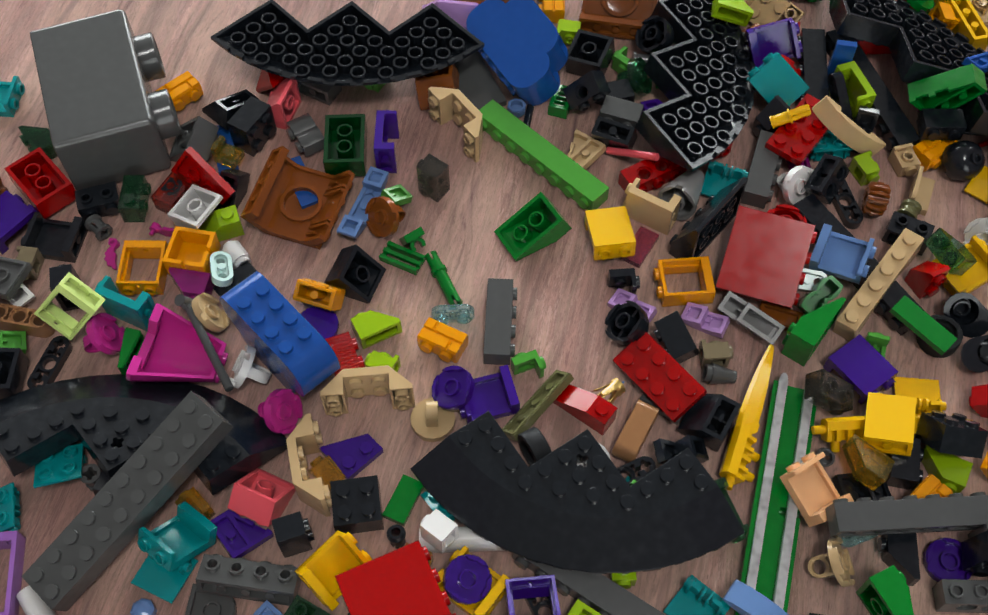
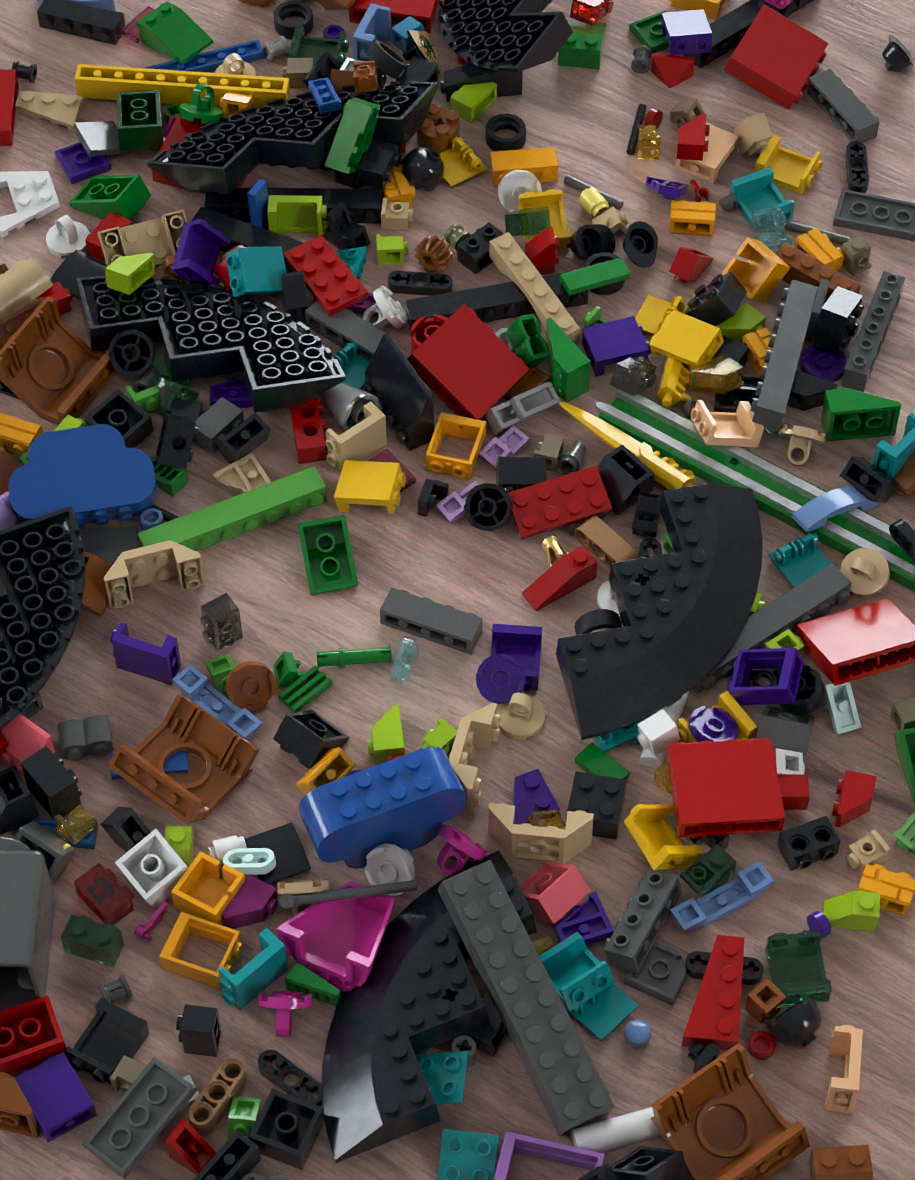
camera: 70 degrees left, 5 degrees down
(77, 293) = (258, 996): yellowish green window -> none
(98, 200) = (76, 982): black brick -> none
(111, 256) = (158, 988): dark pink piece -> none
(200, 172) = (109, 844): red wing -> none
(293, 534) = (611, 865): black brick -> none
(345, 144) = (127, 696): dark green brick -> none
(396, 535) = (643, 775): black pin -> none
(442, 340) = (432, 678): light orange brick -> none
(526, 361) = (494, 603): bright green bracket -> none
(537, 404) = (539, 611): olive tile -> none
(632, 153) = (278, 431): coral bar -> none
(790, 115) = (313, 275): yellow axle -> none
(827, 178) = (396, 279): black brick -> none
(839, 92) = (288, 225): black beam -> none
(842, 255) = (496, 300): medium blue panel -> none
(845, 129) = (345, 239): tan slope -> none
(921, 190) = (434, 218): tan panel -> none

